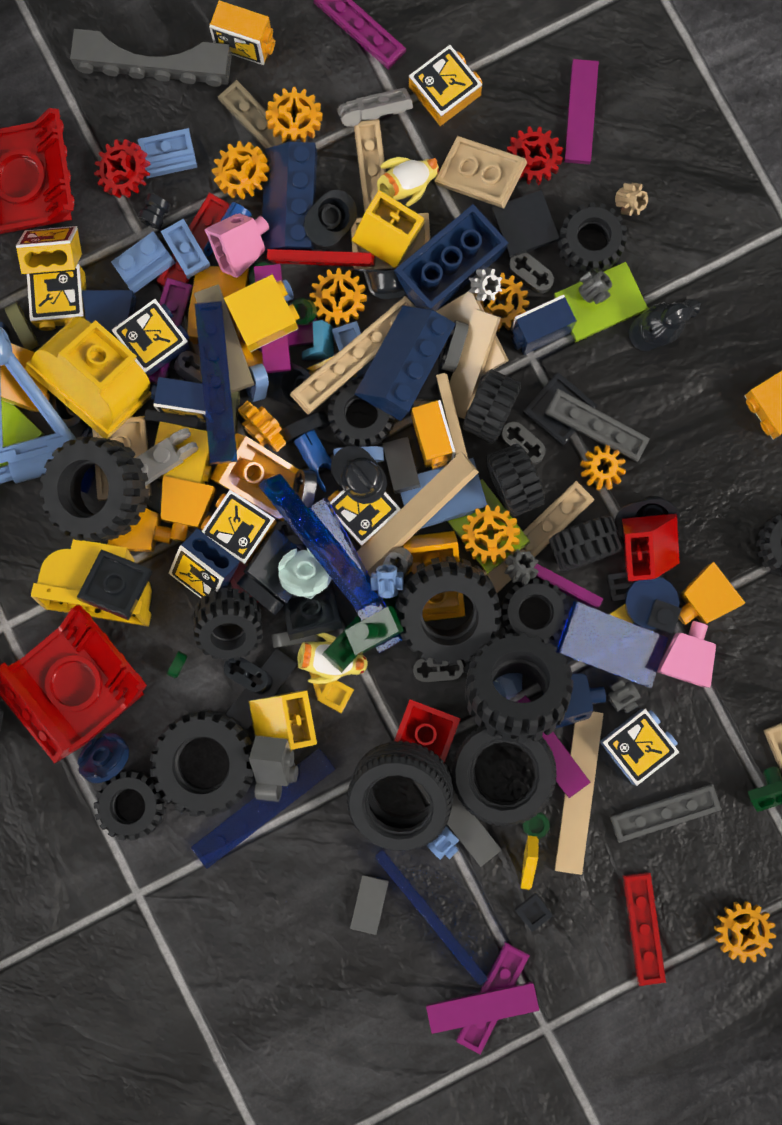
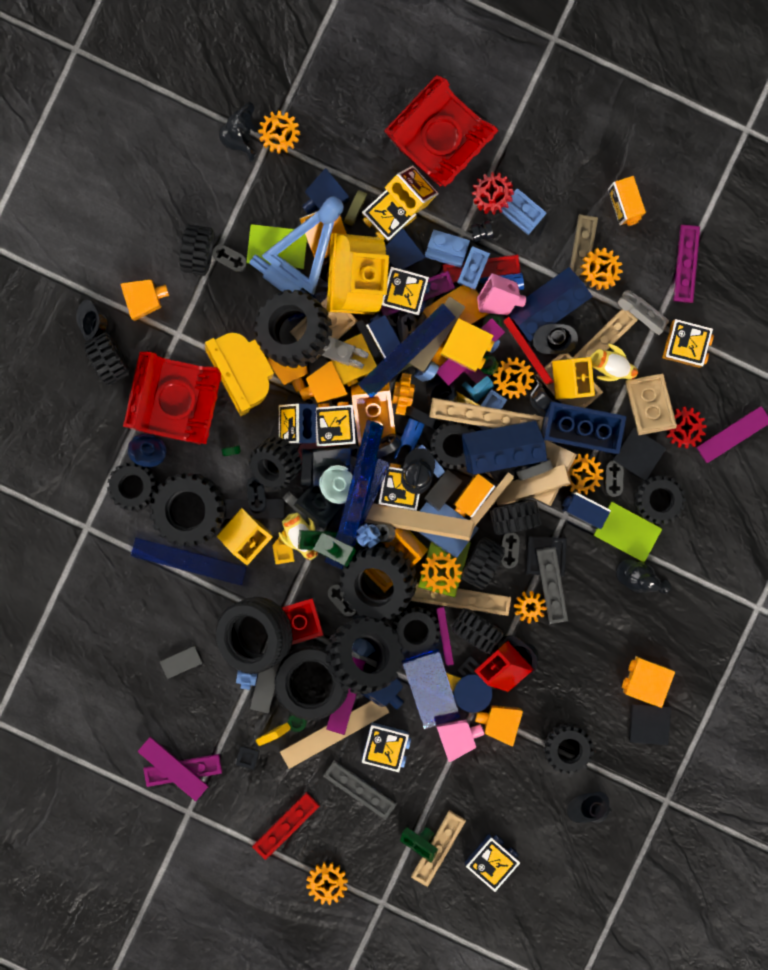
camera: 55 degrees right, 5 degrees up
(114, 584) = (247, 384): black tile -> none
(203, 63) = (594, 192): dark grey arch -> none
(252, 166) = (550, 267): light orange gear -> none
(272, 767) = (215, 550): dark grey hinge -> none
(431, 916) = (201, 701): clear blue tile -> none
(485, 284) = (583, 460): light grey gear -> none
(521, 566) = (435, 604): dark grey gear -> none
(595, 287) = (632, 523): dark grey gear -> none
(623, 696) = (407, 717): dark grey gear -> none
(631, 199) = (701, 504): tan gear -> none
(663, 616) = (469, 706): black plate -> none

